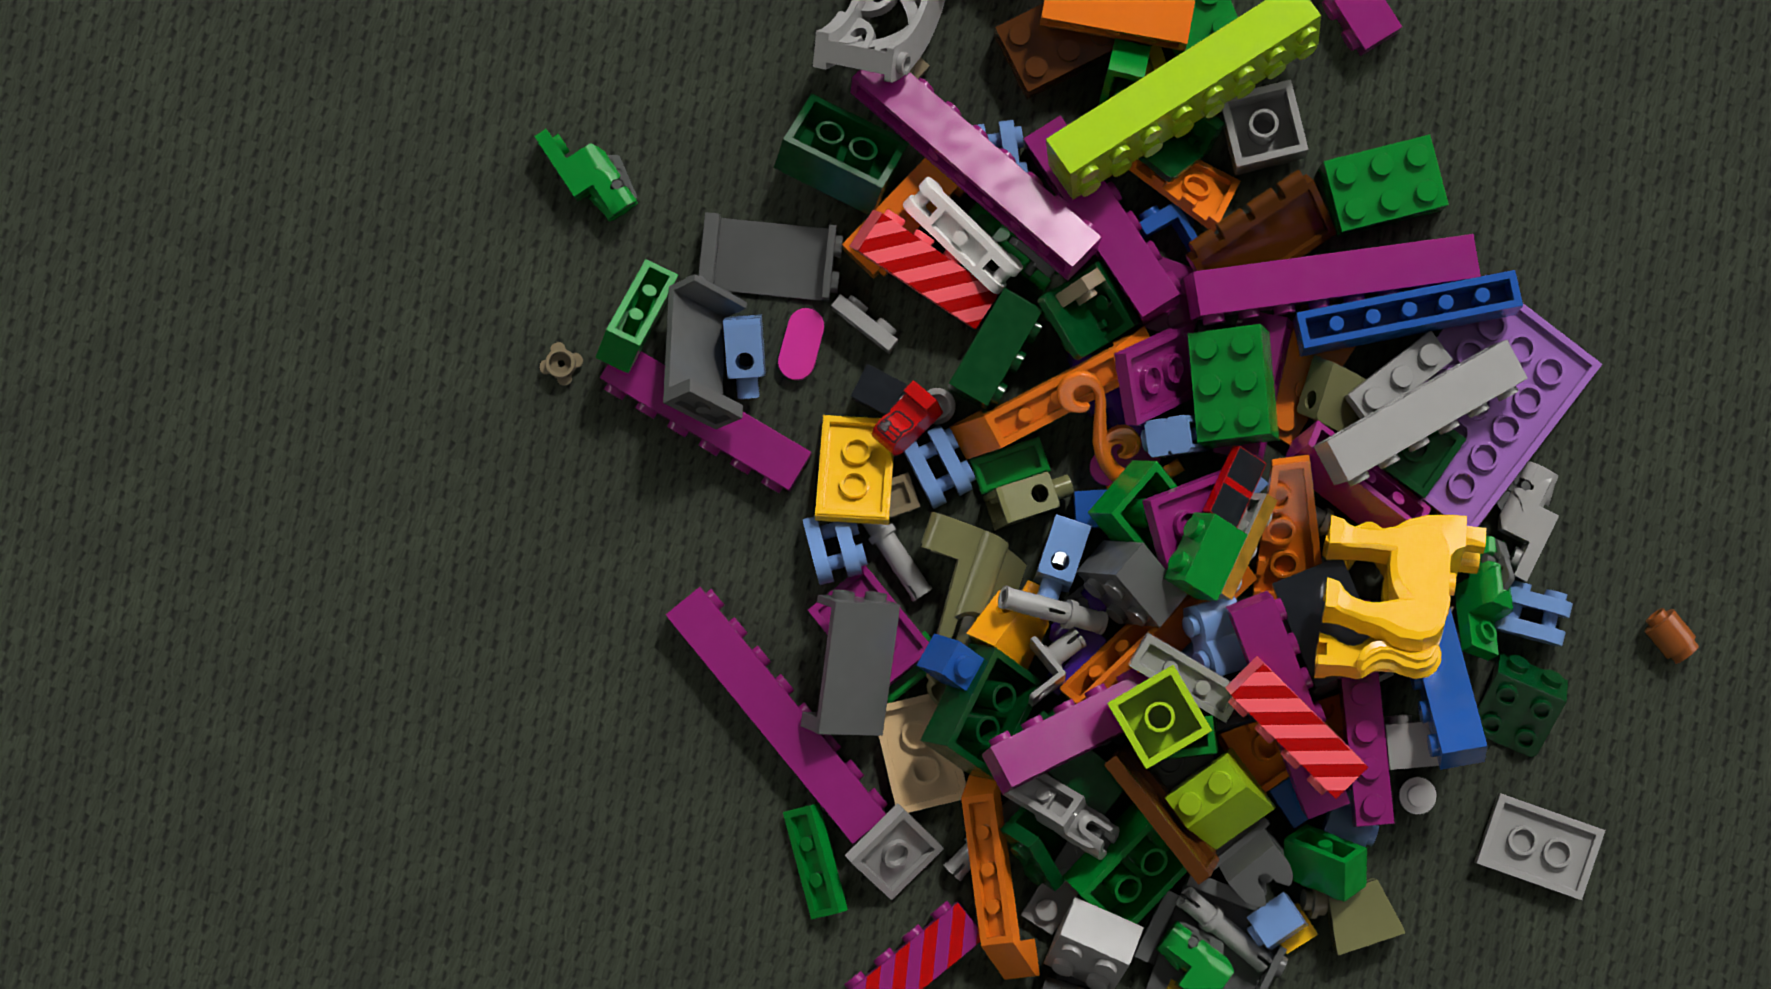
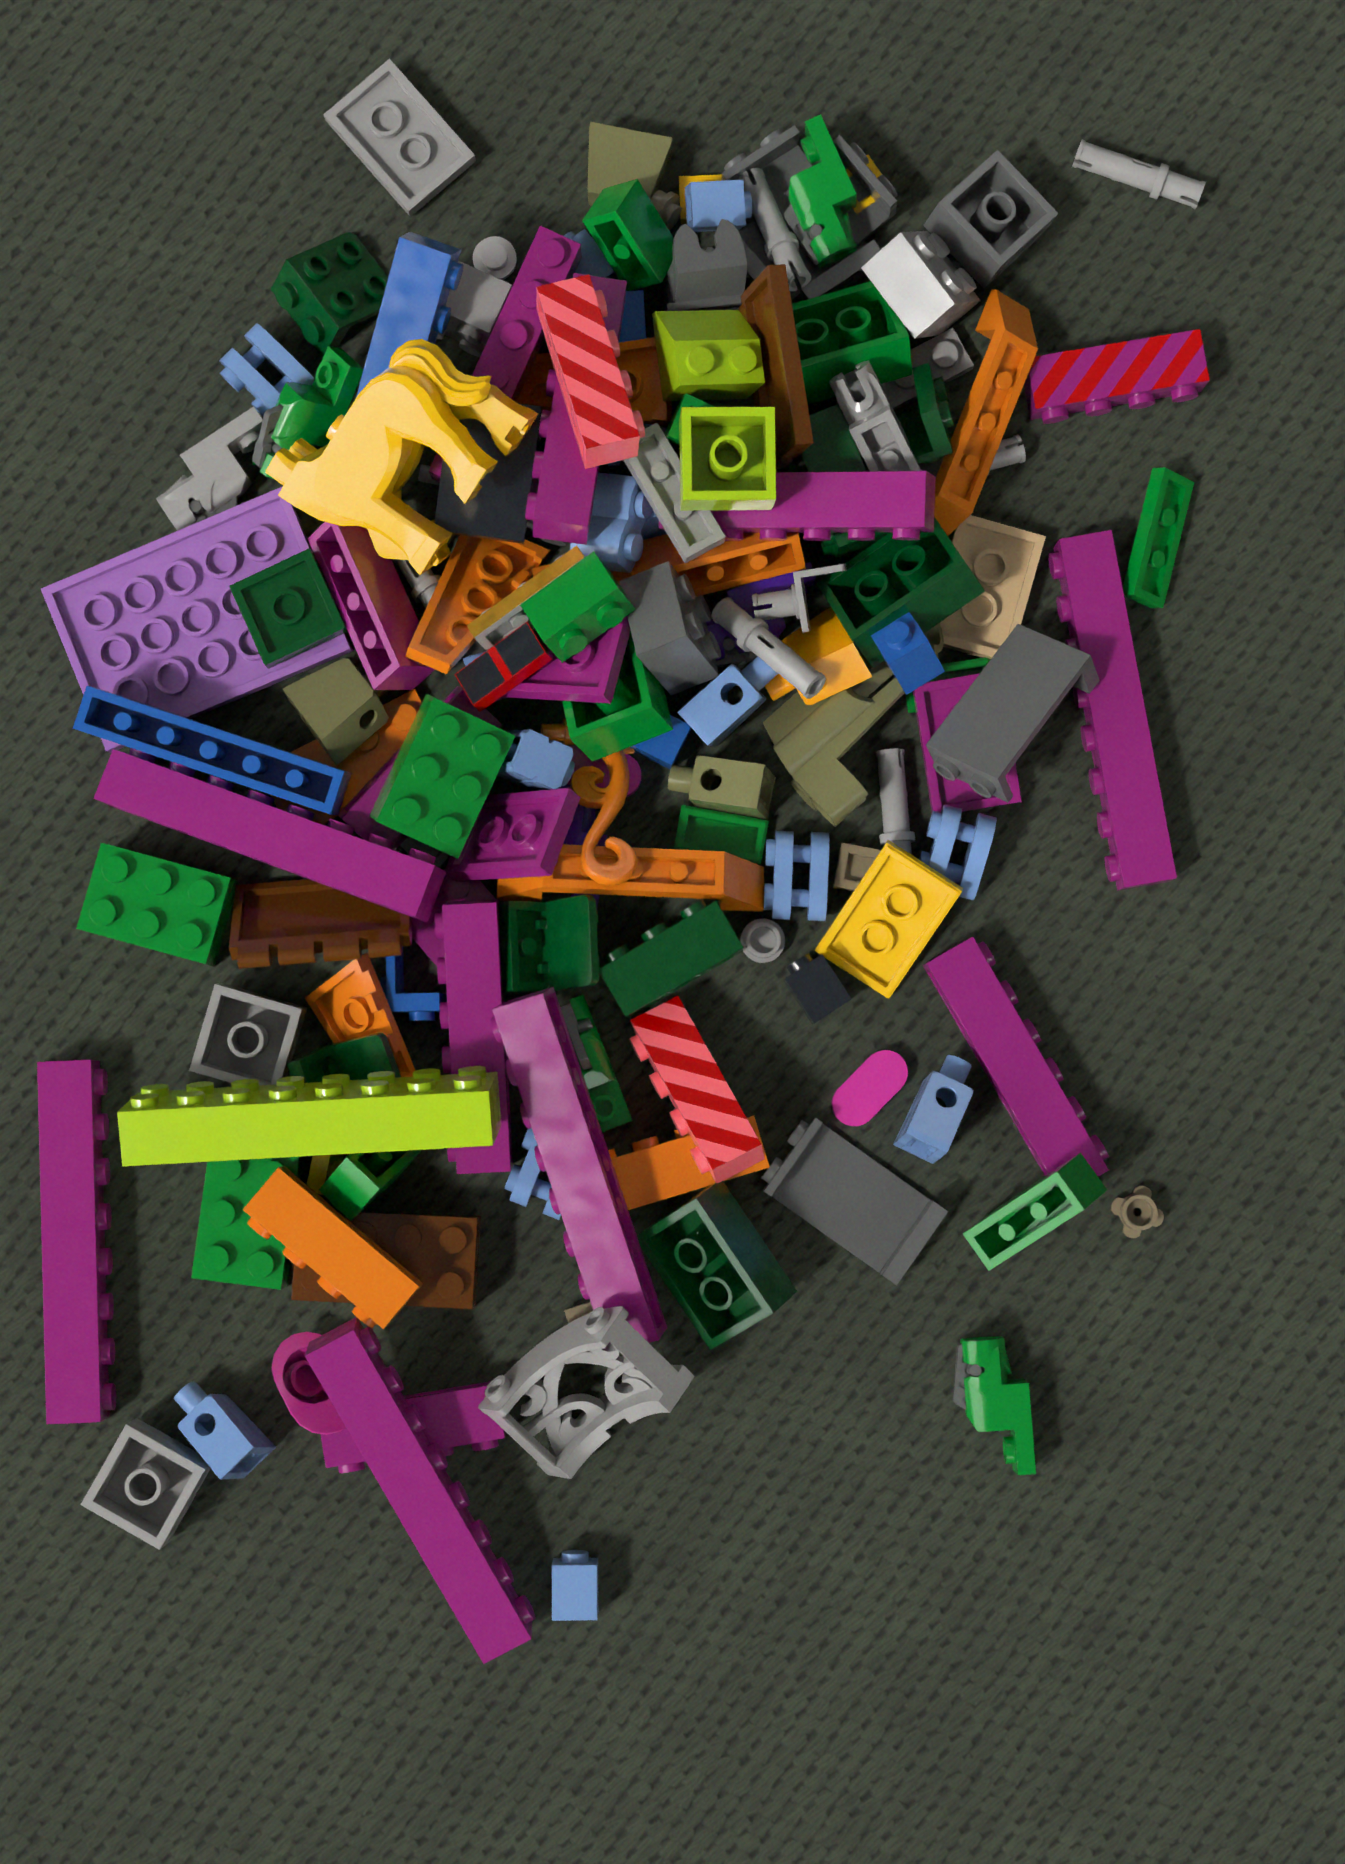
camera: 155 degrees left, 0 degrees up
(697, 351) = (991, 1136): dark grey panel -> none
(854, 313) = (781, 1053): light grey plate -> none
(894, 851) = (1071, 499): light grey plate -> none
(907, 419) = (807, 938): red leg -> none
(962, 236) = (638, 1100): white plate -> none
(1082, 289) = (543, 970): dark tan plate -> none
(1399, 375) = (262, 689): light grey plate -> none
(1420, 413) = (262, 633): light grey brick -> none
(1671, 635) = (137, 273): dark orange brick -> none

